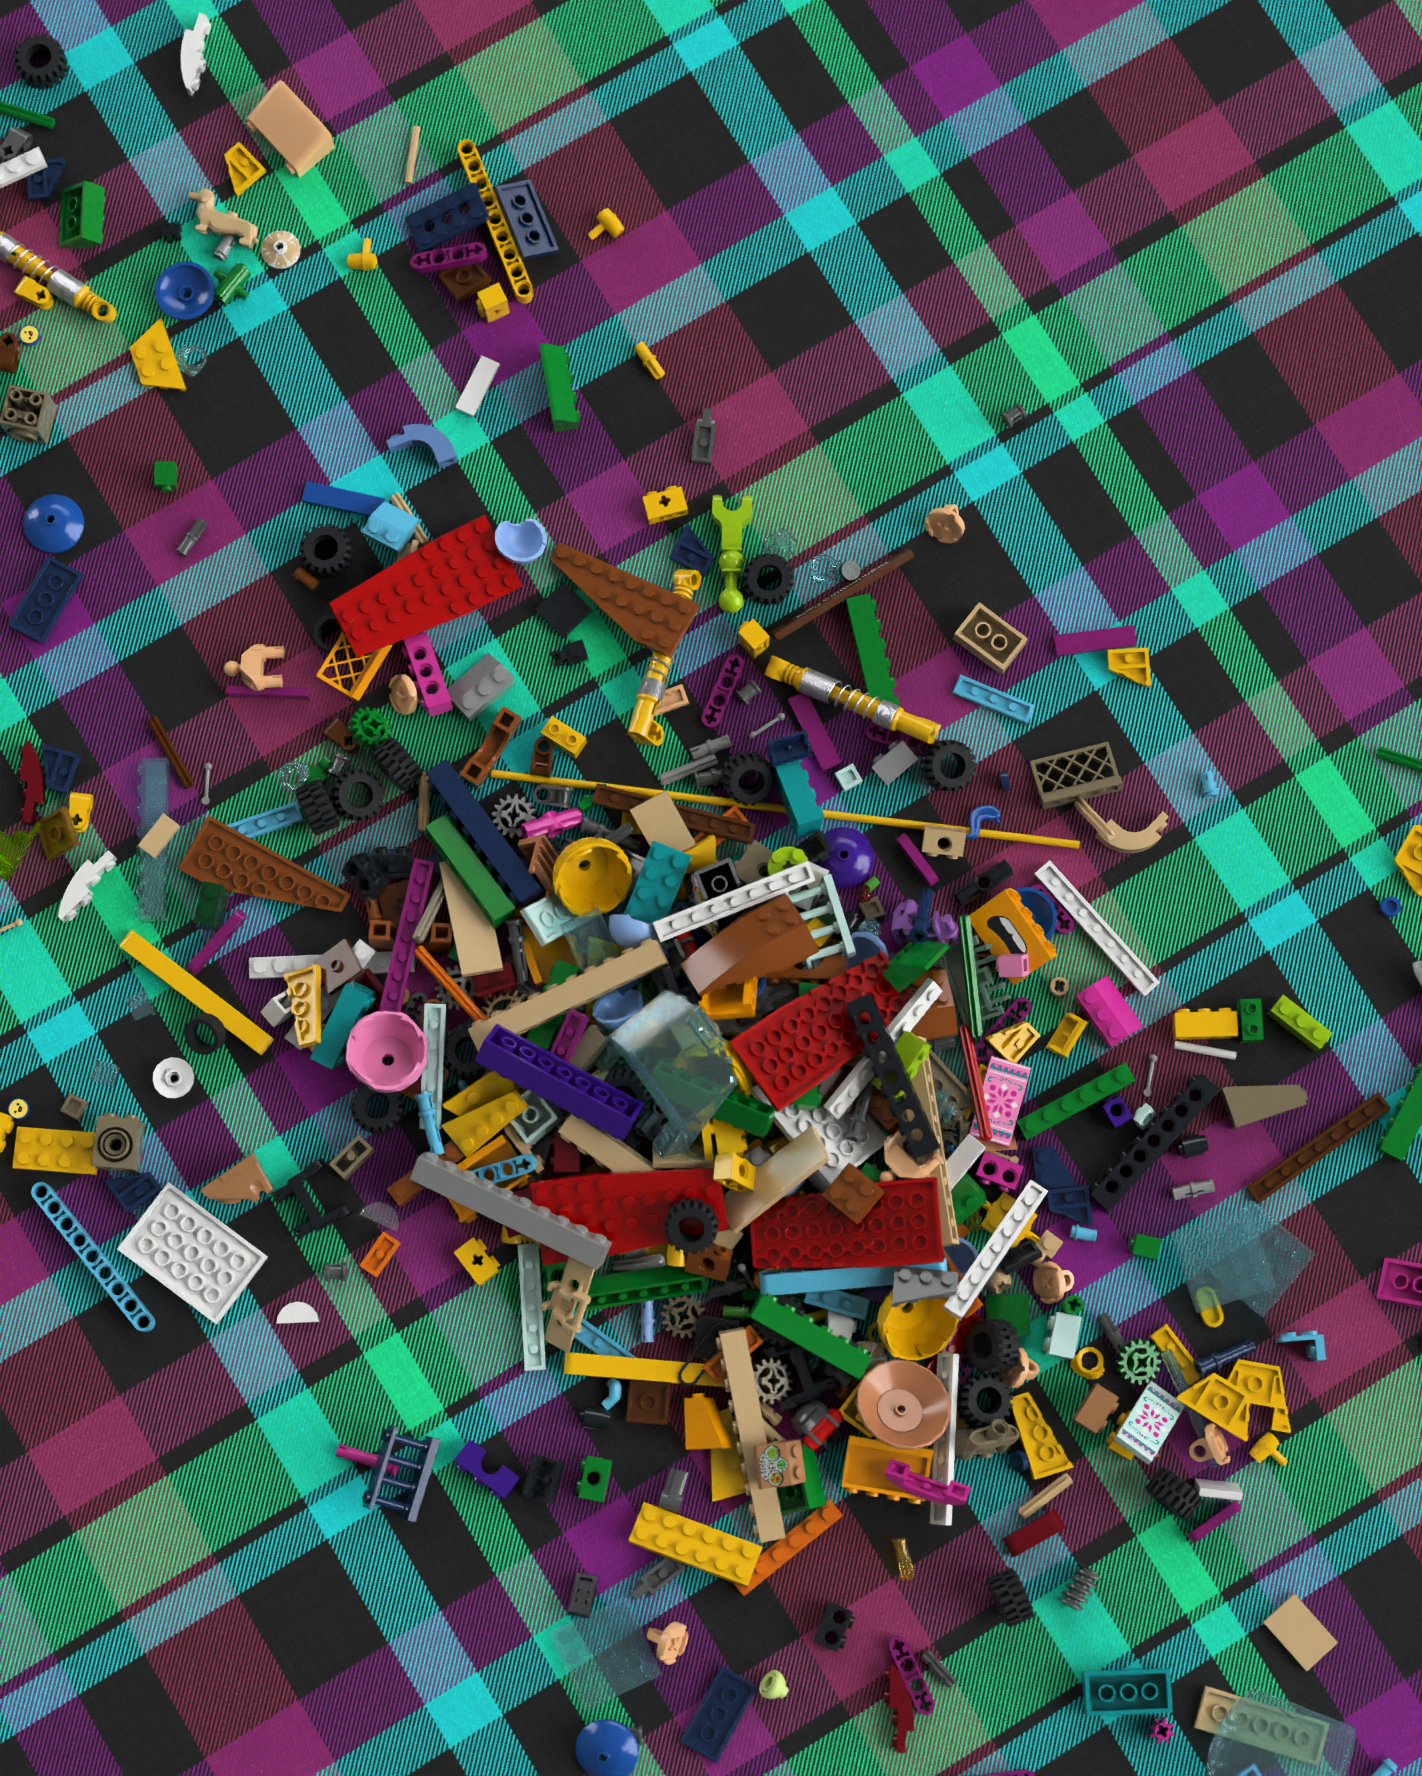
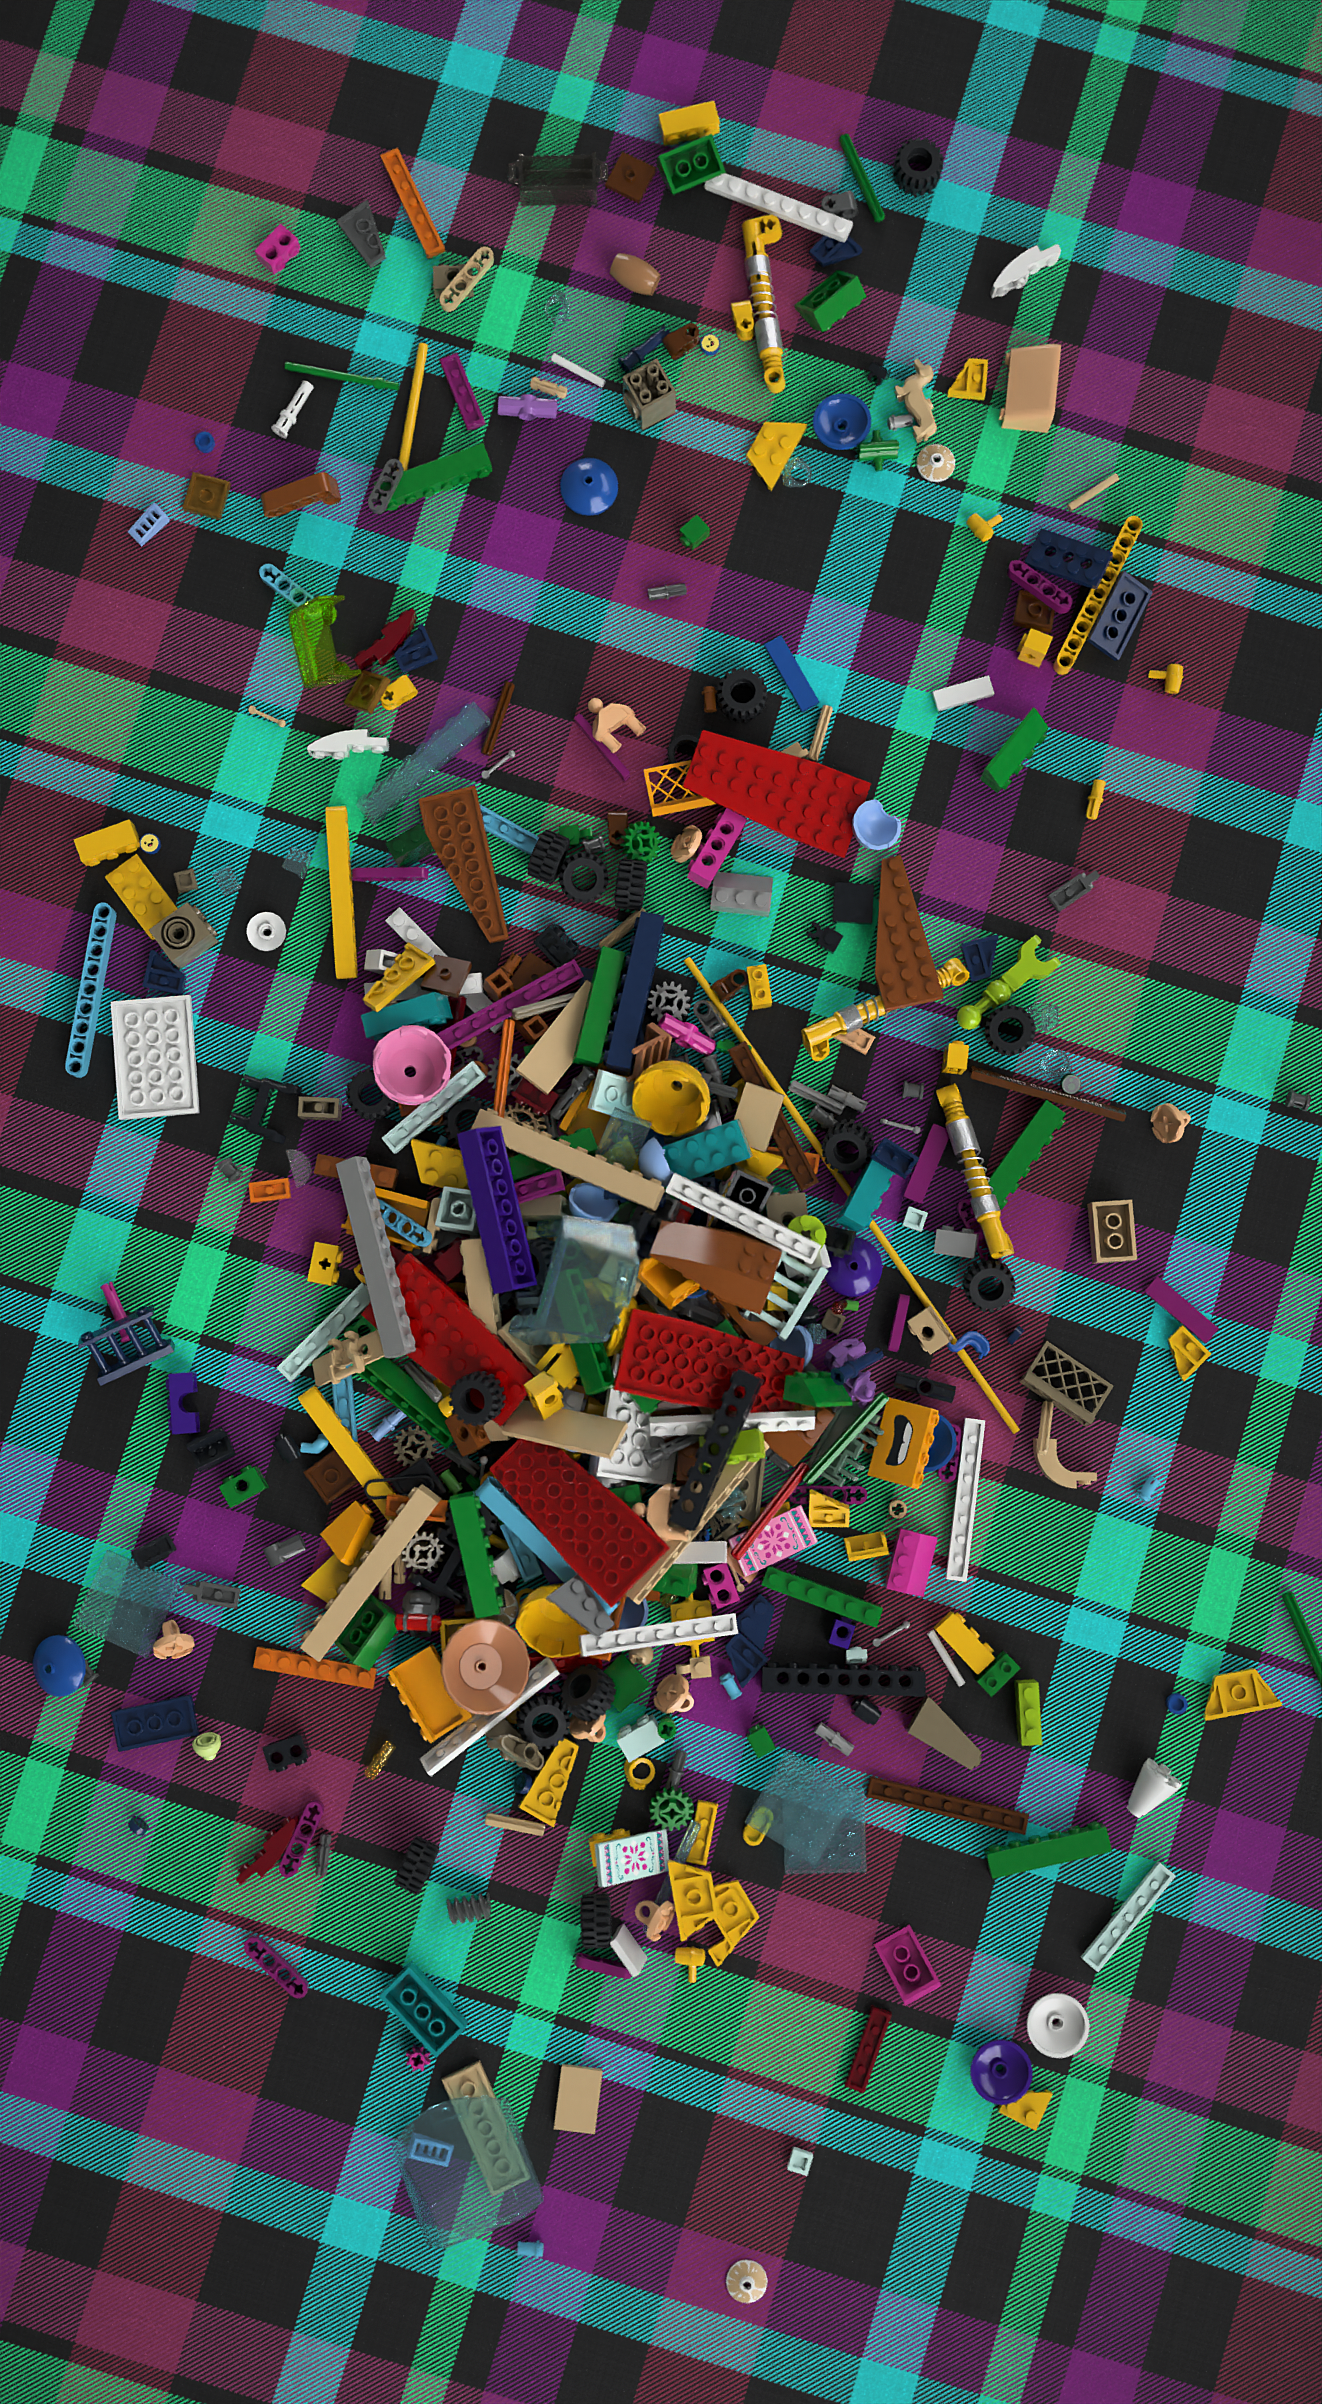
camera: 50 degrees right, 5 degrees up
(46, 600) = (528, 531): dark blue plate -> none
(159, 835) = (428, 764): tan tile -> none
(196, 1043) = (305, 925): black tyre -> none
(239, 1182) = (232, 1045): medium nougat piece -> none
(297, 1313) = (177, 1169): white tile -> none
(303, 773) = (564, 825): clear light blue piece -> none
(364, 877) = (528, 936): black brick -> none
(390, 527) = (801, 724): medium azure slope -> none
(427, 437) = (891, 689): medium blue arch -> none
(427, 1113) = (395, 1134): medium azure pin -> none
(480, 1125) = (419, 1179): yellow wing -> none
(496, 741) = (717, 940): dark orange arch -> none
(655, 509) = (1006, 911): yellow brick -> none
(695, 1544) = (258, 1600): yellow plate -> none
(719, 690) = (895, 1069): magenta beam -> none
(779, 1464) = (364, 1613): medium nougat slope -> none
(853, 1193) = (603, 1496): dark orange brick -> none
(926, 1488) = (440, 1736): dark pink slope -> none
(993, 699) = (1069, 1273): medium azure tile -> none
(1012, 965) = (881, 1463): bright pink brick -> none
(1020, 1257) = (672, 1656): black plate -> none
(1033, 1533) = (480, 1839): dark red beam -> none
(1095, 1409) = (607, 1808): medium nougat brick -> none
(1217, 1360) = (722, 1866): dark blue pin -> none
(1316, 1346) = (798, 1928): medium azure bracket -> none

